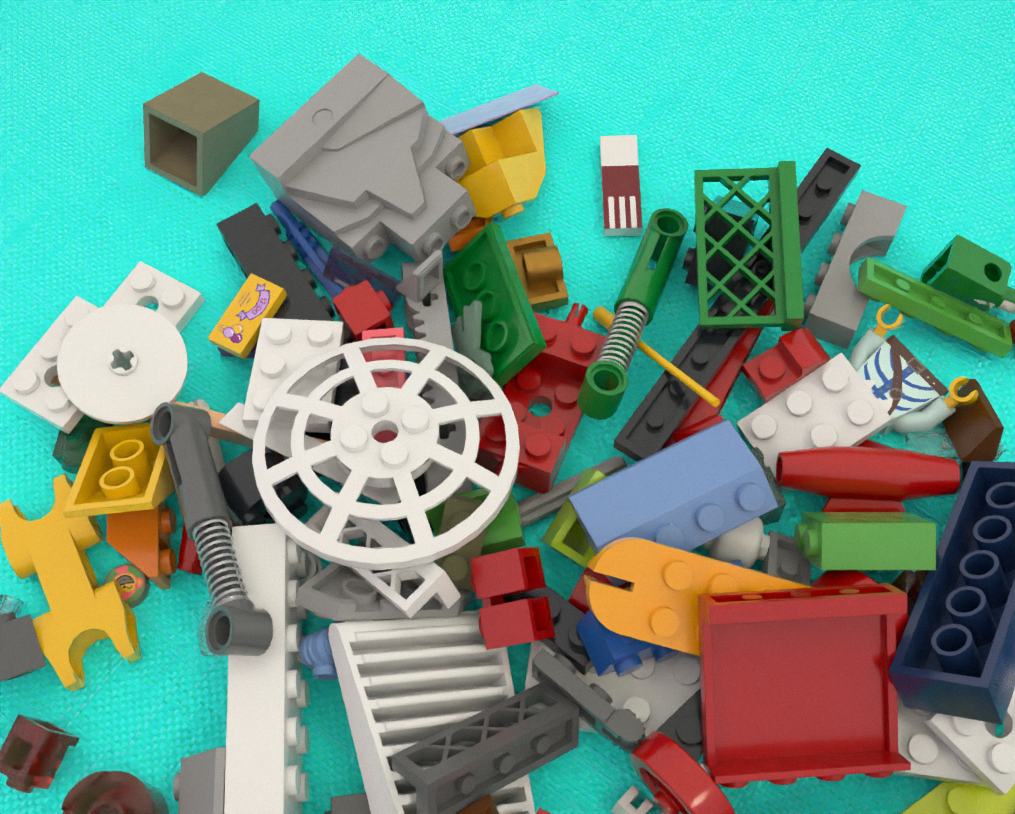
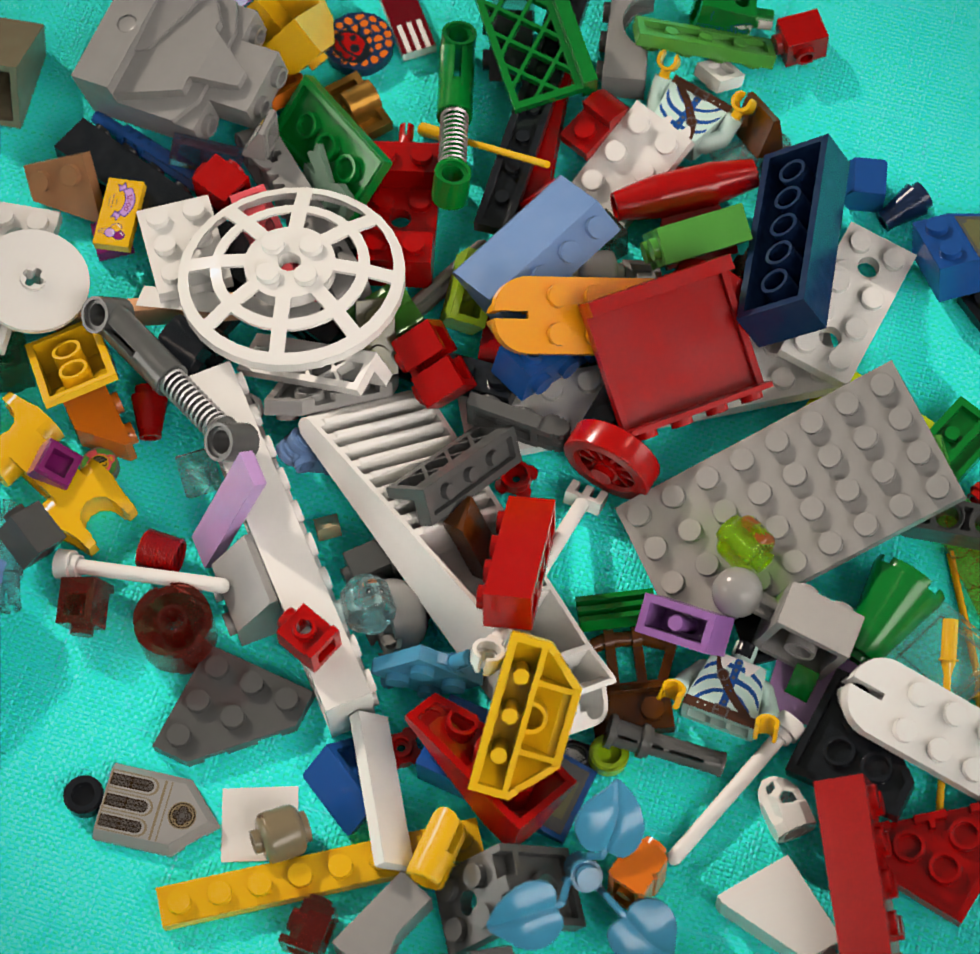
camera: 20 degrees left, 0 degrees up
(44, 697) = (71, 564): none -> white piece
(67, 577) = (54, 464): none -> magenta slope
(140, 718) = (160, 551): none -> red piece
(213, 266) = (66, 185): none -> medium nougat wing
(216, 705) = (229, 508): none -> lavender tile
(335, 744) = (327, 527): none -> tan piece
(565, 205) = (361, 44): none -> tile
(568, 775) = (525, 472): none -> red plate
(940, 349) = (719, 76): none -> white plate

